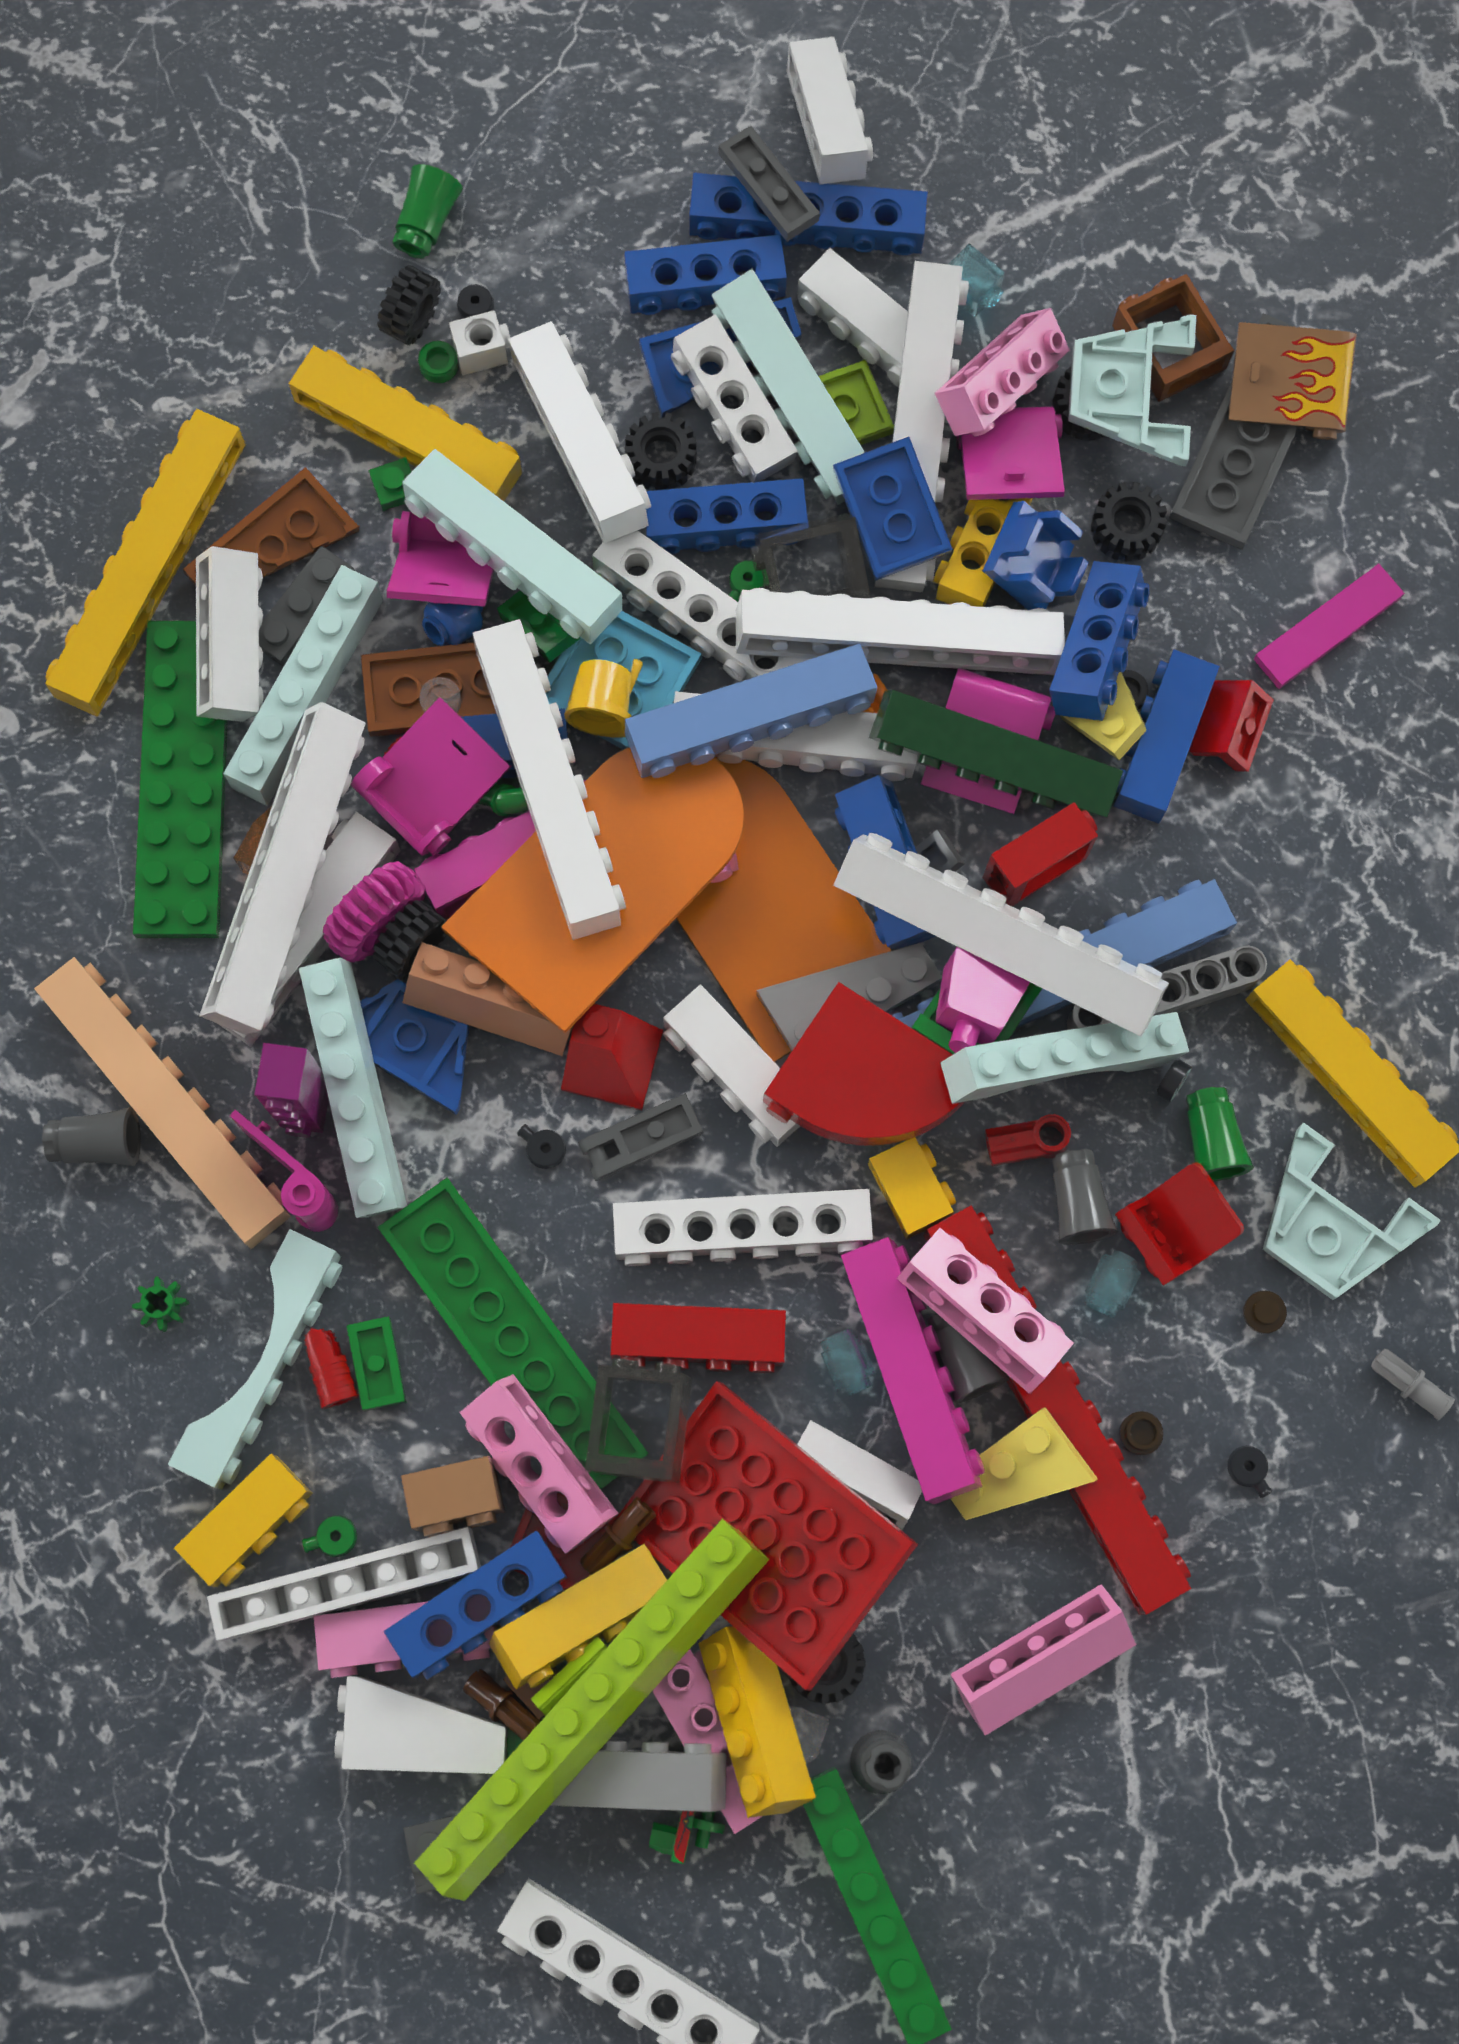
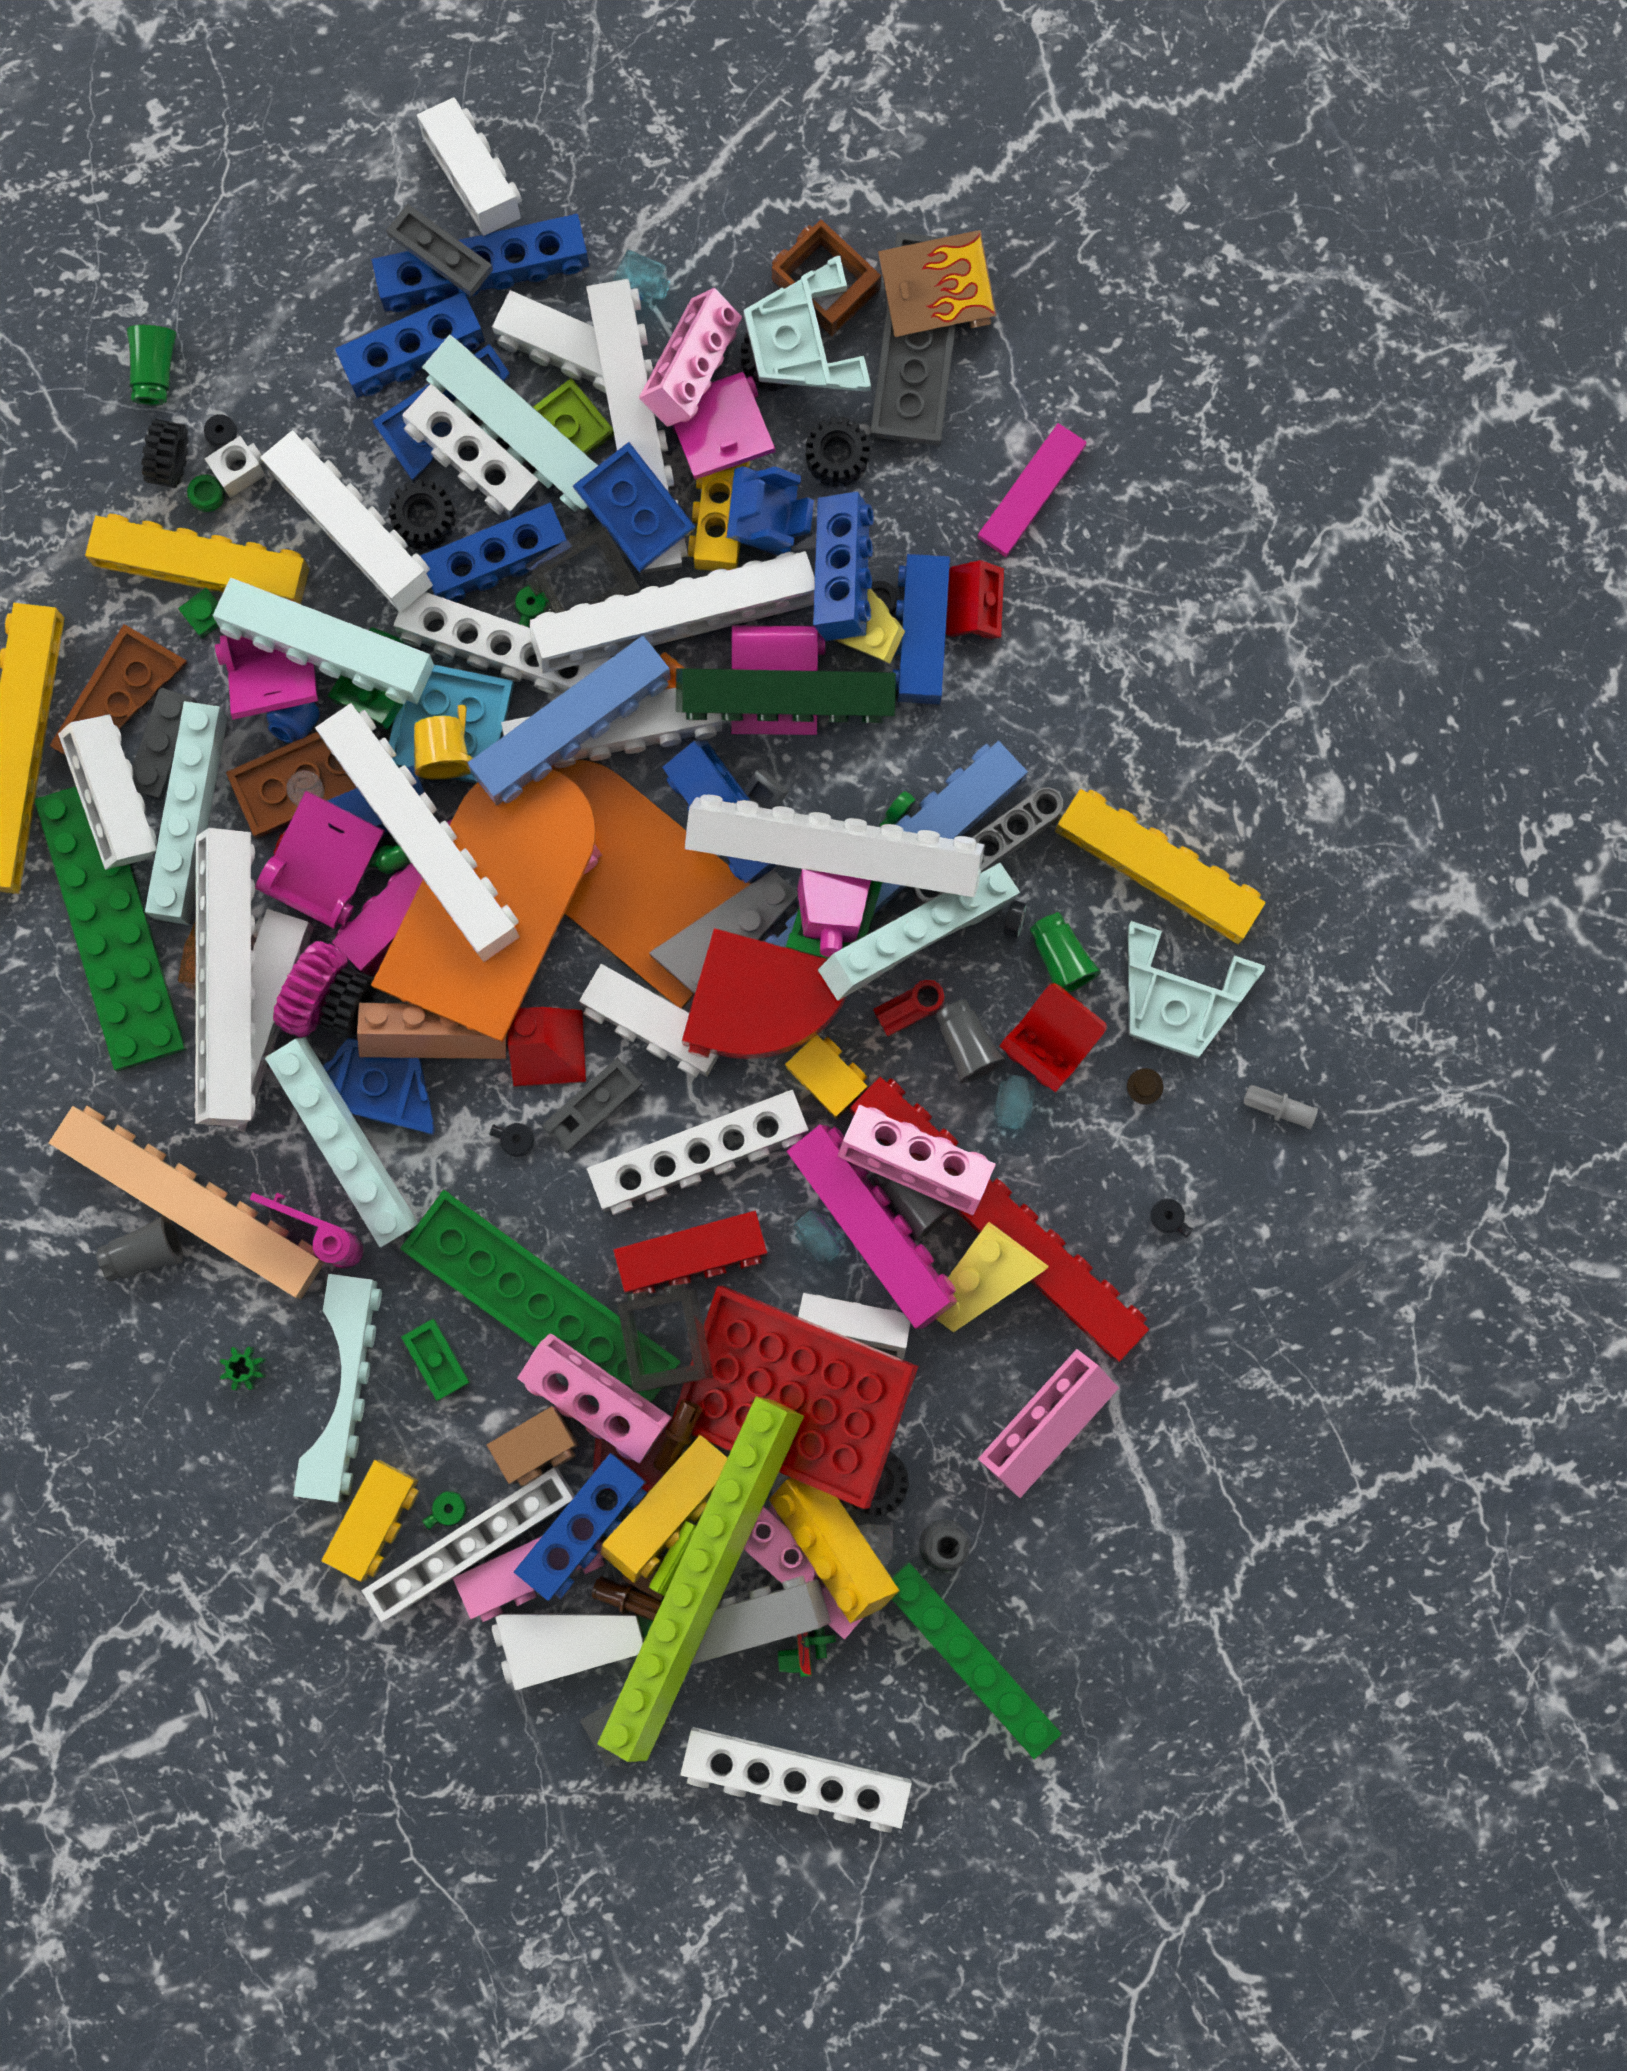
camera: 15 degrees left, 5 degrees up
(292, 1089) = (293, 1160): magenta brick -> none
(329, 1369) = (398, 1376): red hinge -> none
(1041, 854) = (849, 765): red window -> none
(1083, 917) = (899, 808): none -> green piece
(1141, 1433) = (1074, 1216): dark brown plate -> none

